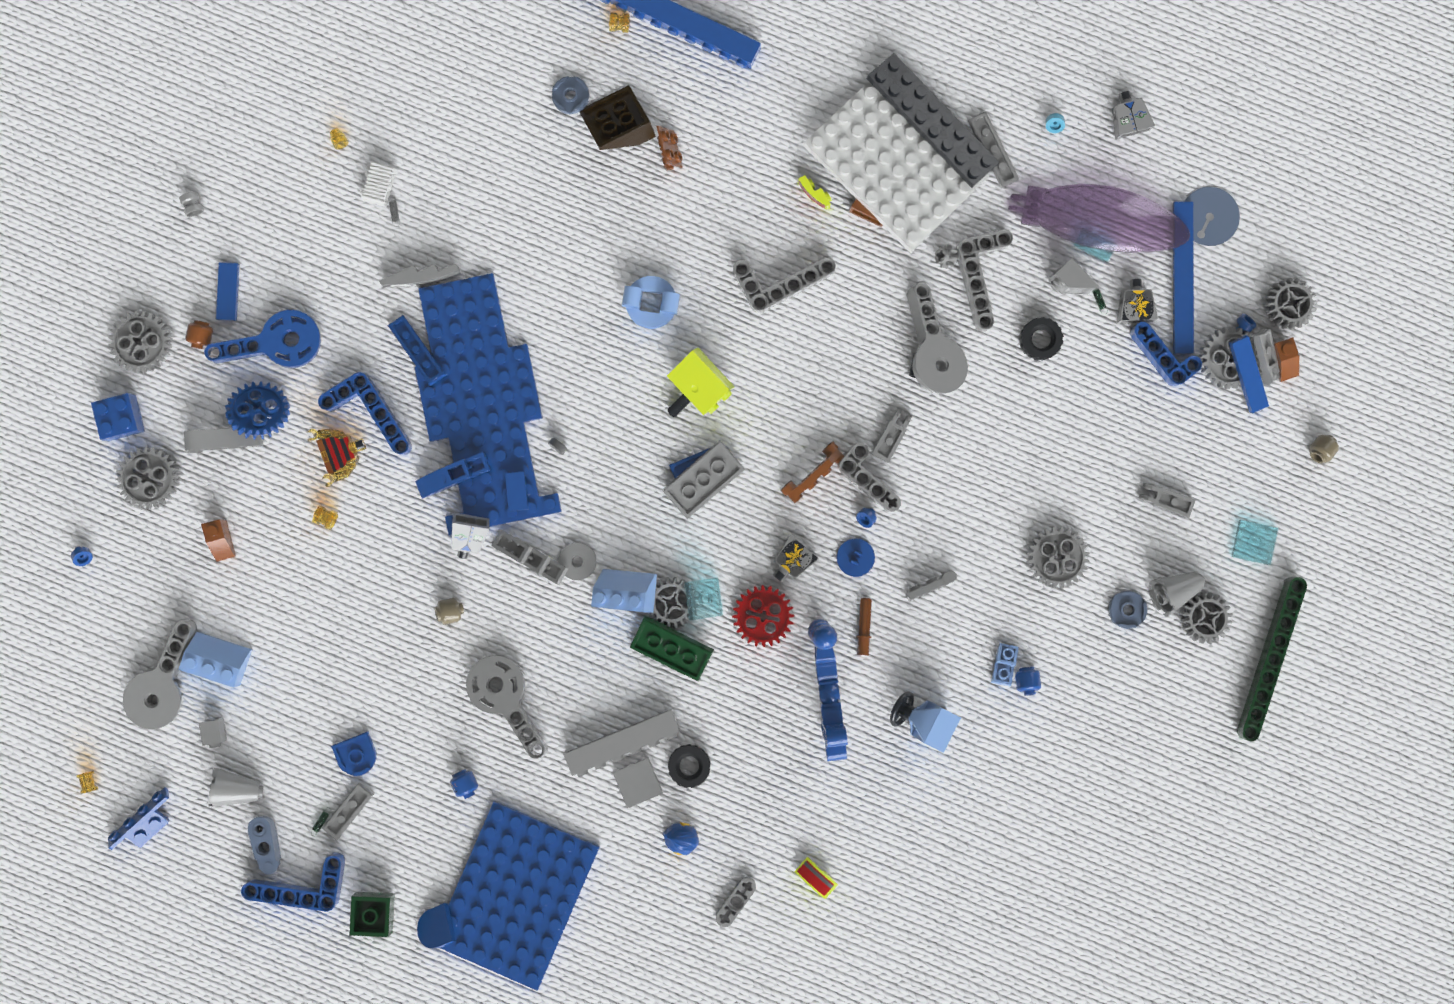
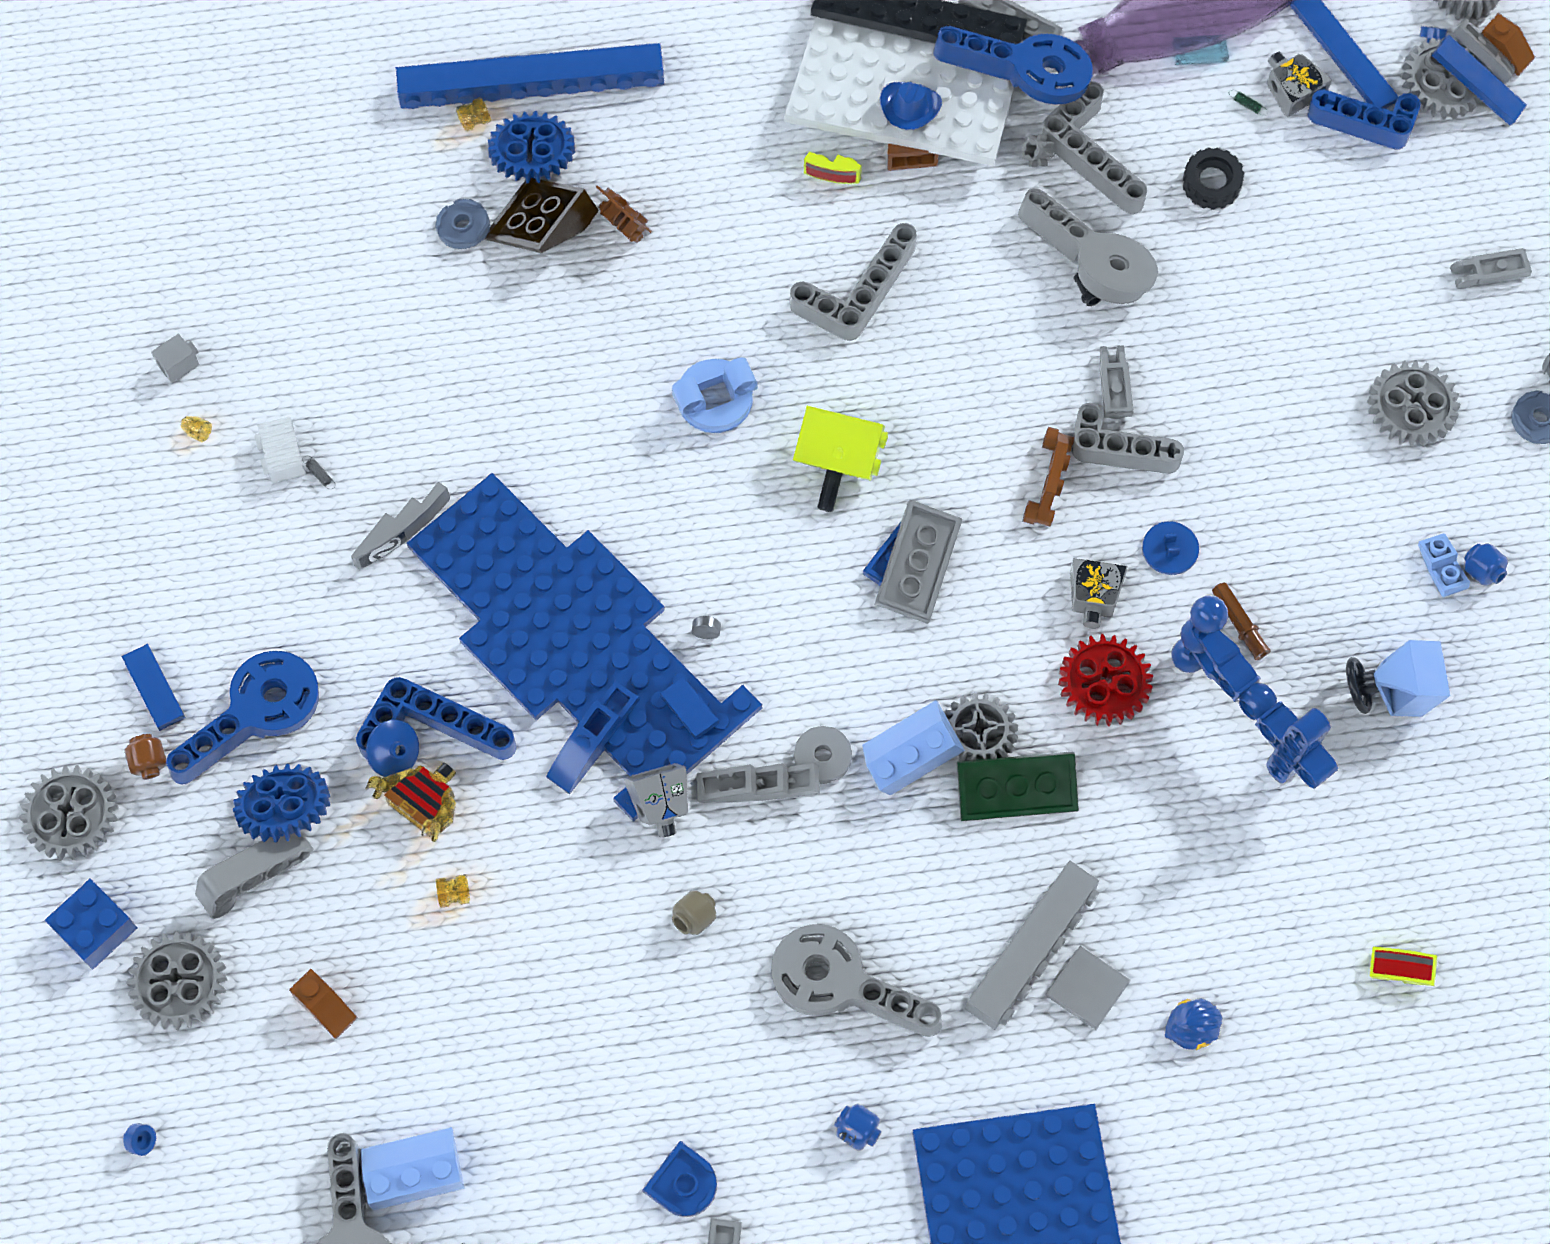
camera: 30 degrees left, 20 degrees down
(191, 203) = (44, 605): light grey wheel -> none
(337, 408) = (382, 747): none -> blue dish
(350, 85) = (176, 357): none -> light grey brick
(416, 350) = (450, 615): blue tile -> none
(626, 57) = (550, 148): none -> blue gear
(689, 780) = (1147, 901): black tyre -> none
(703, 599) = (1017, 700): clear light blue tile -> none
(734, 893) = (1331, 1042): light grey beam -> none
(866, 517) = (1151, 490): blue tile -> none
(883, 183) = (909, 104): none -> blue hat
(932, 585) = (1287, 523): light grey hinge -> none
(975, 195) = (1016, 60): none -> blue beam
(1072, 280) = (1204, 91): light grey slope -> none

